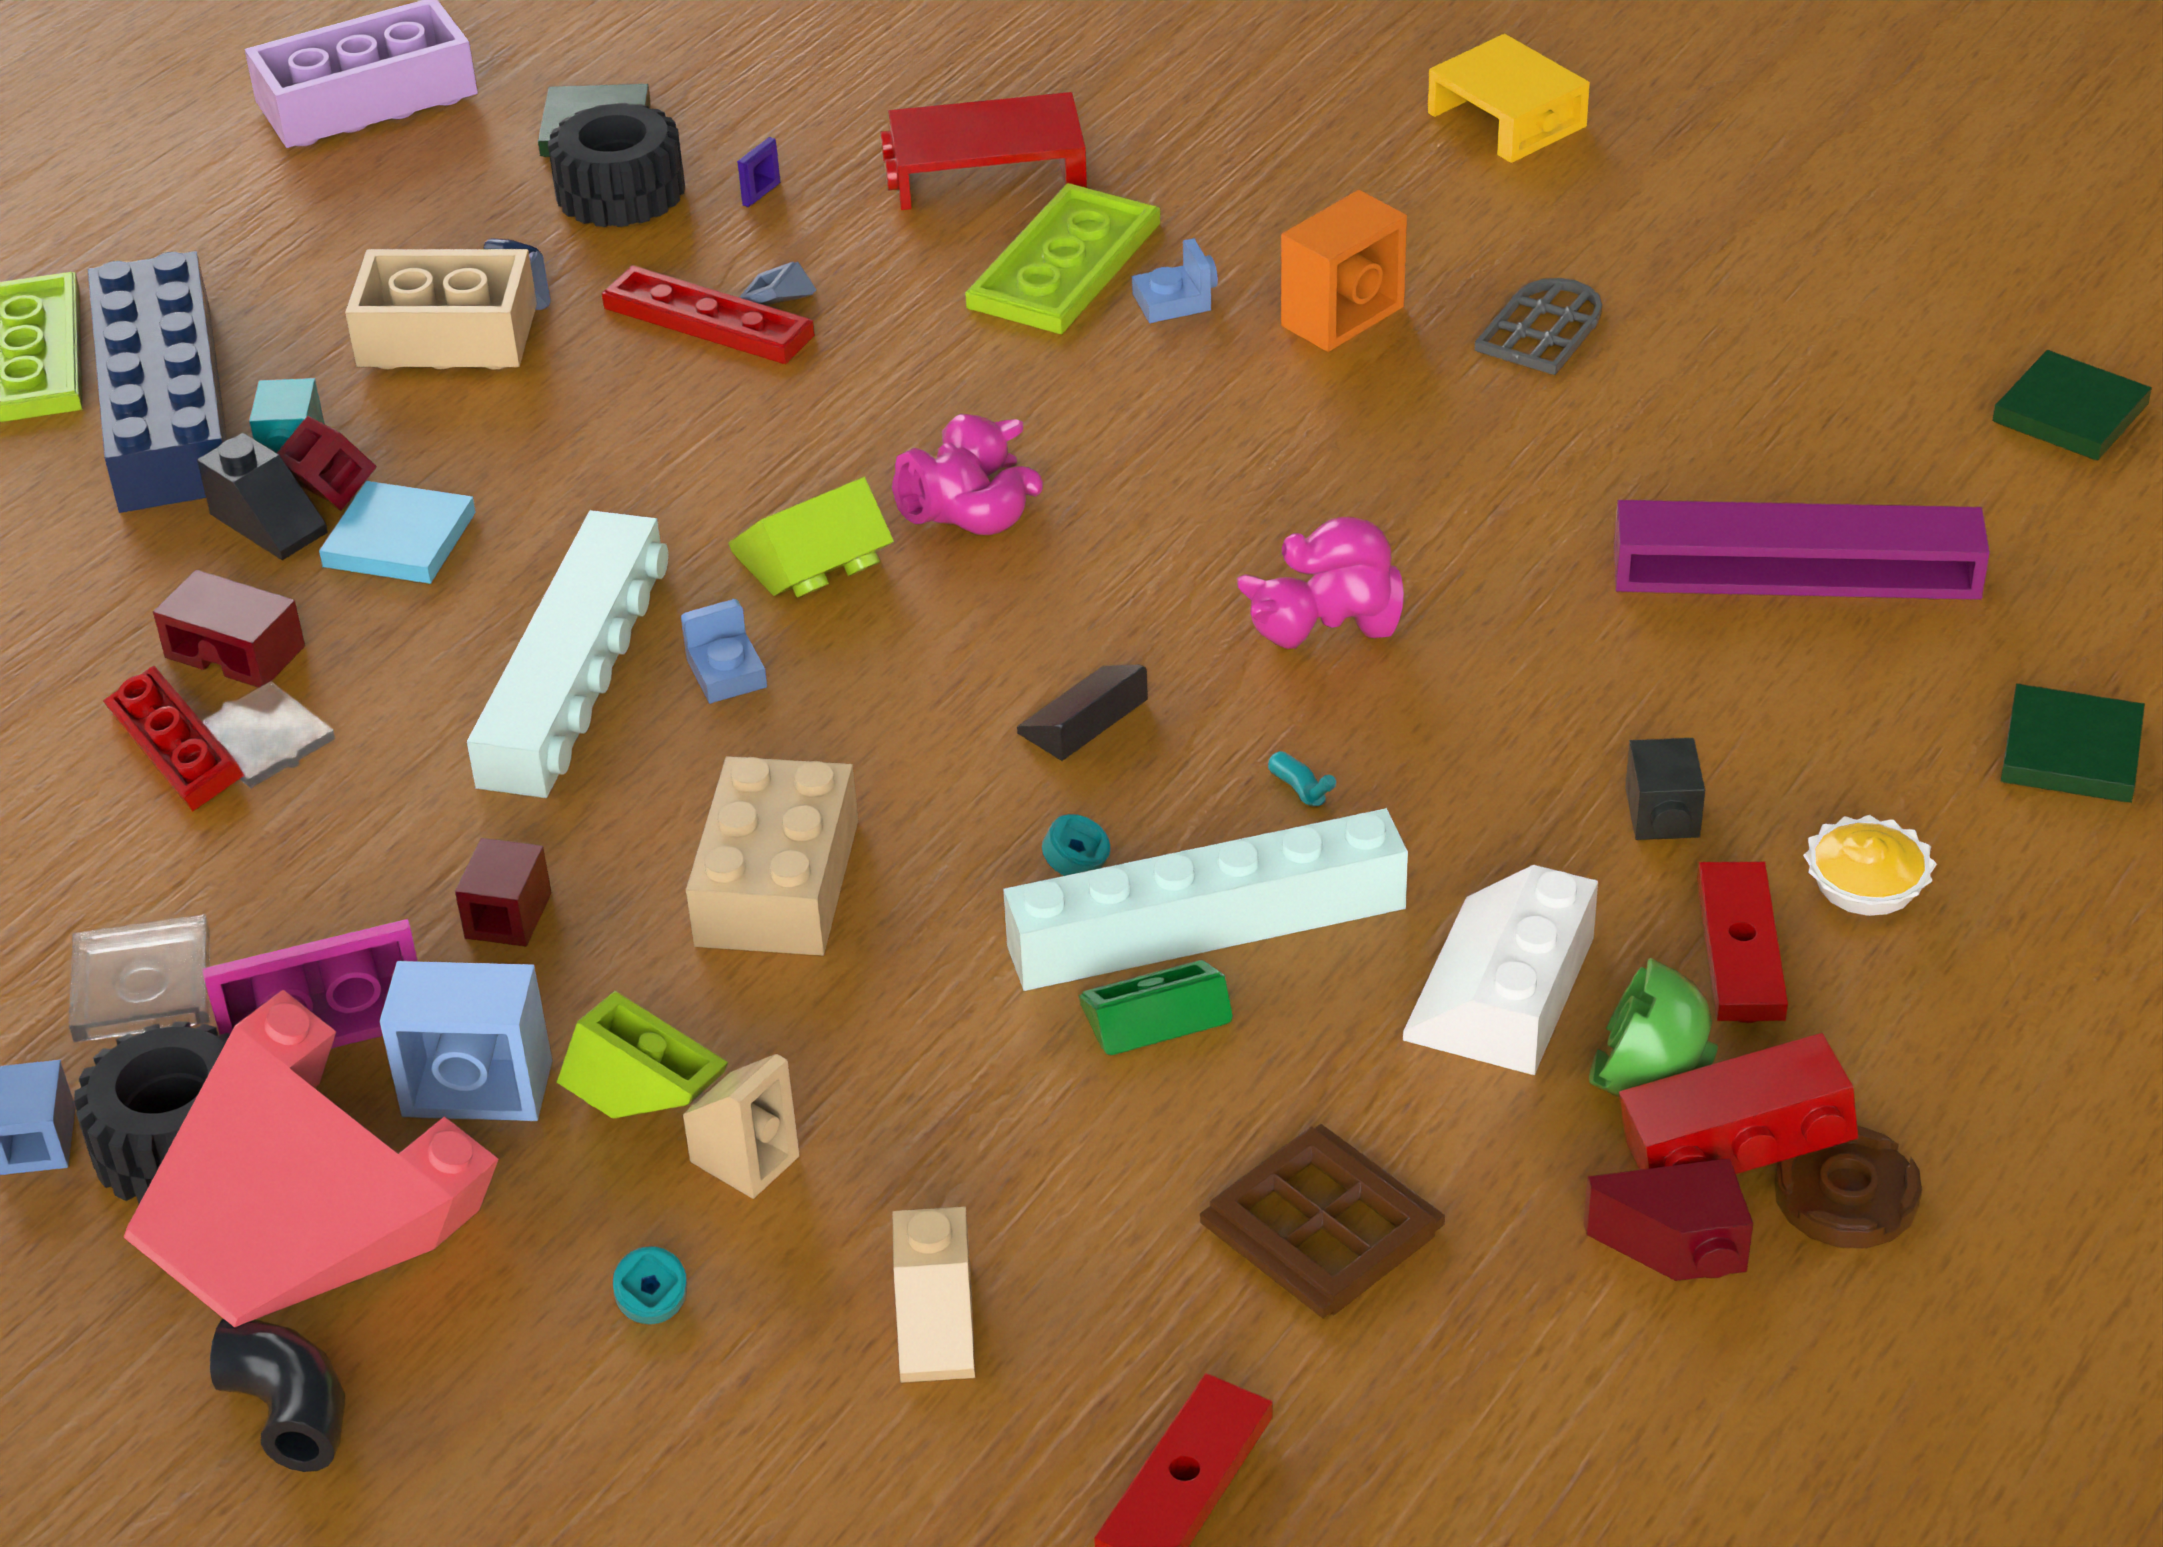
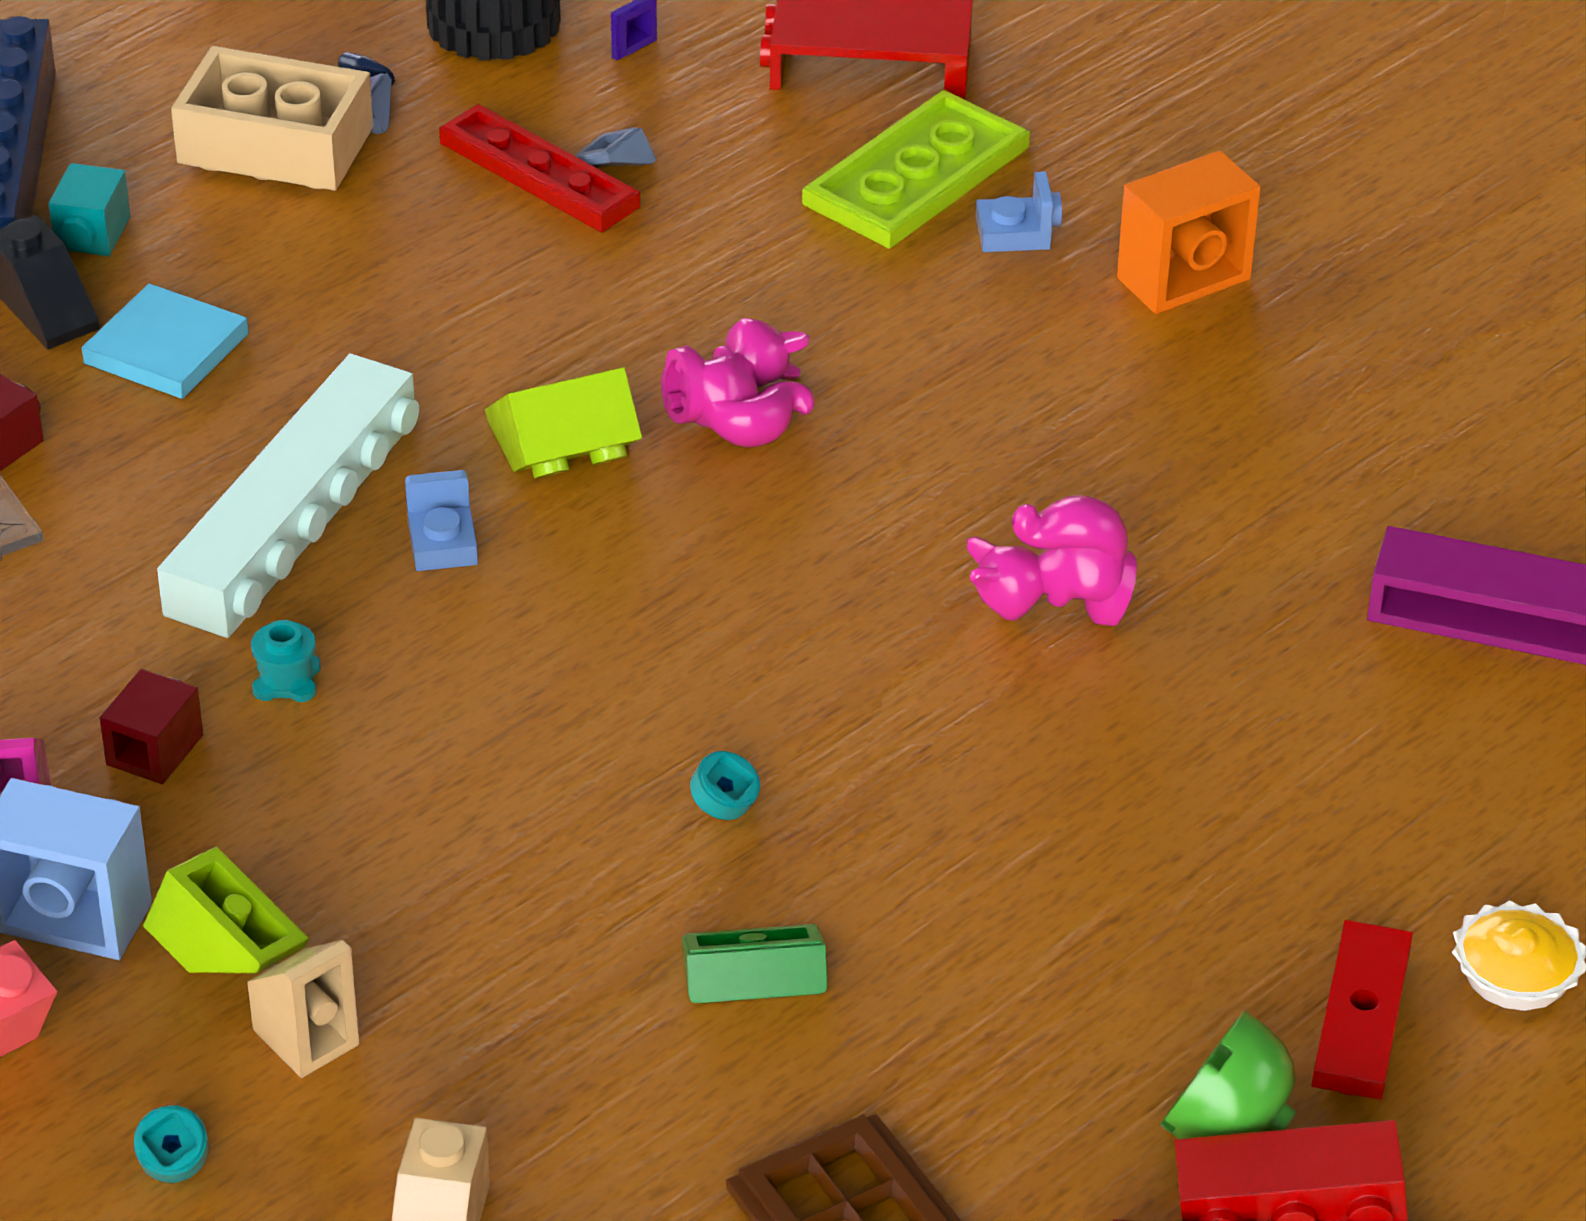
camera: 10 degrees right, 0 degrees up
(325, 462) = (111, 258): dark red brick -> none
(613, 808) = (285, 661): none -> teal brick
(773, 856) = (422, 738): tan brick -> none
(1086, 709) = (783, 646): black slope -> none
(1205, 899) = (834, 863): light aqua brick -> none
(1301, 778) = (976, 756): teal piece -> none
(1507, 969) = (1116, 994): white slope -> none
(1518, 86) = (1442, 67): yellow panel -> none
(1547, 338) = (1387, 338): dark grey window -> none
(1665, 788) = (1337, 837): pearl dark grey brick -> none

